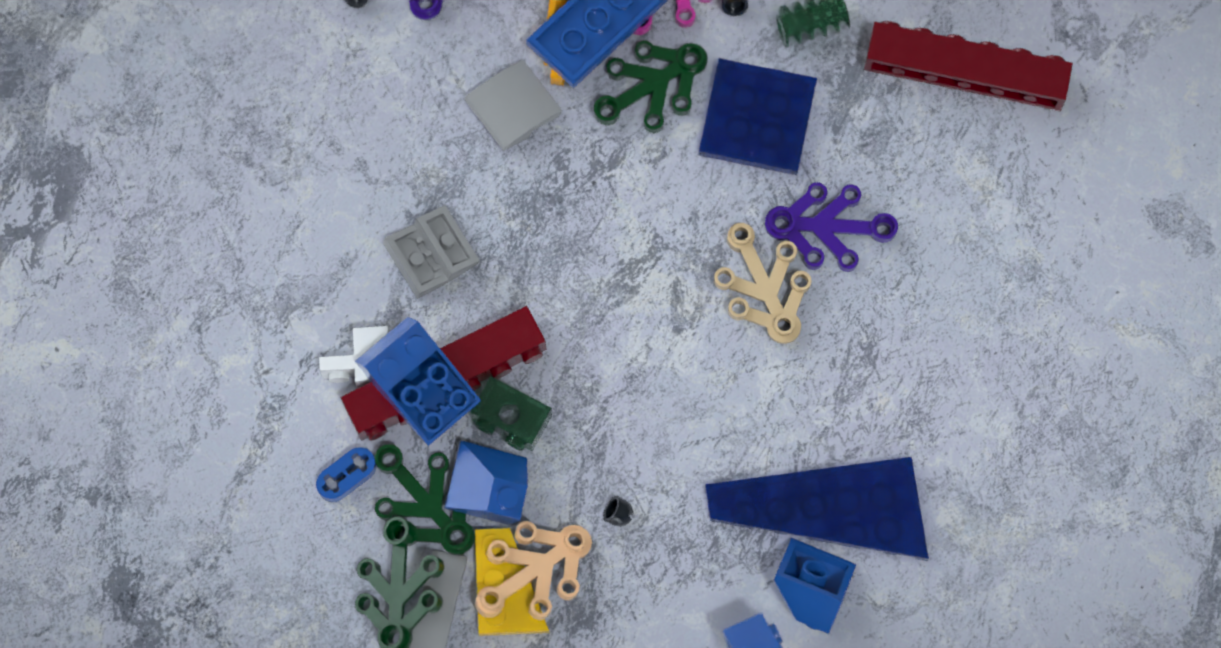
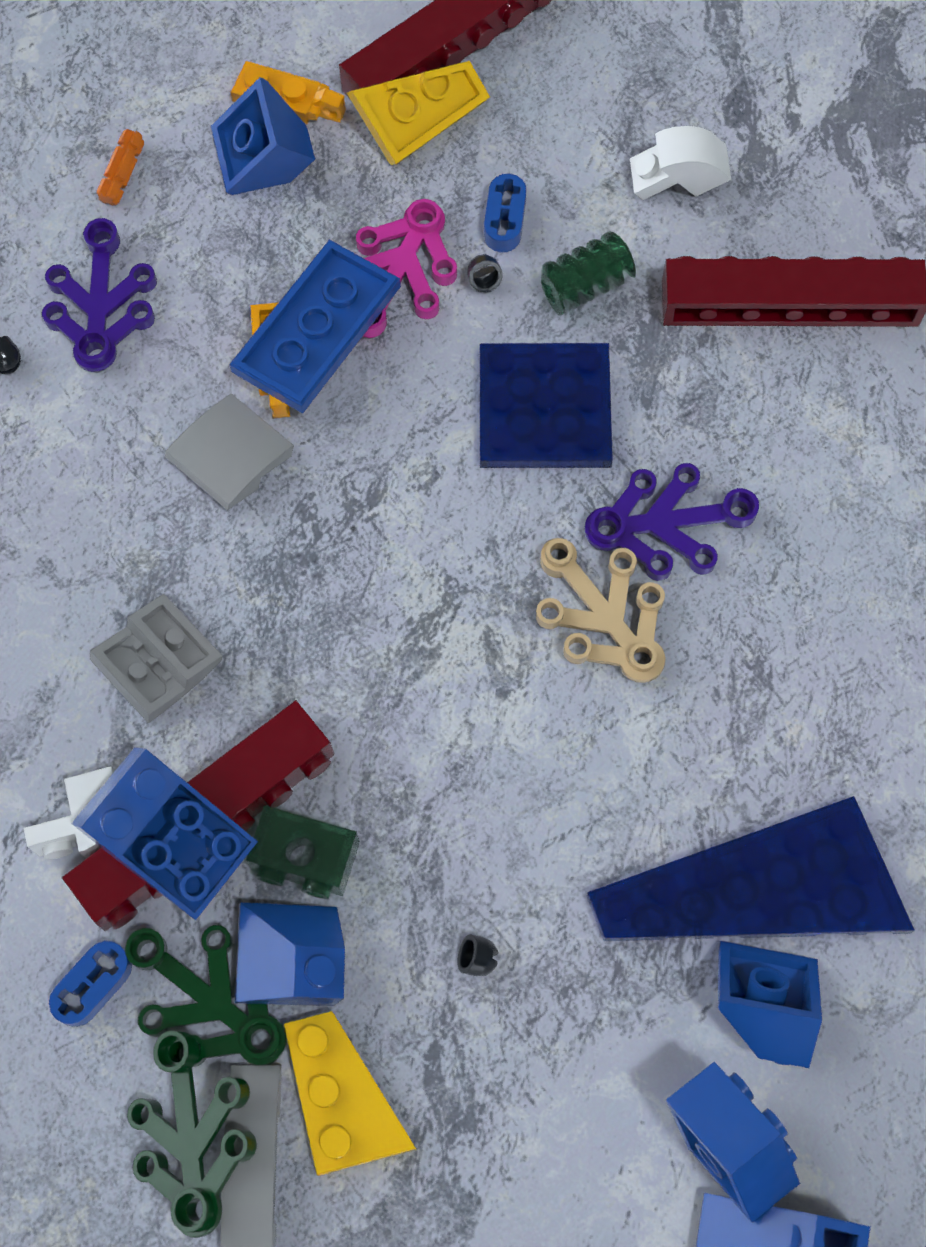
camera: 10 degrees left, 5 degrees down
(538, 566) = (382, 1058): light nougat plant -> none
(654, 81) = (403, 387): dark green plant -> none

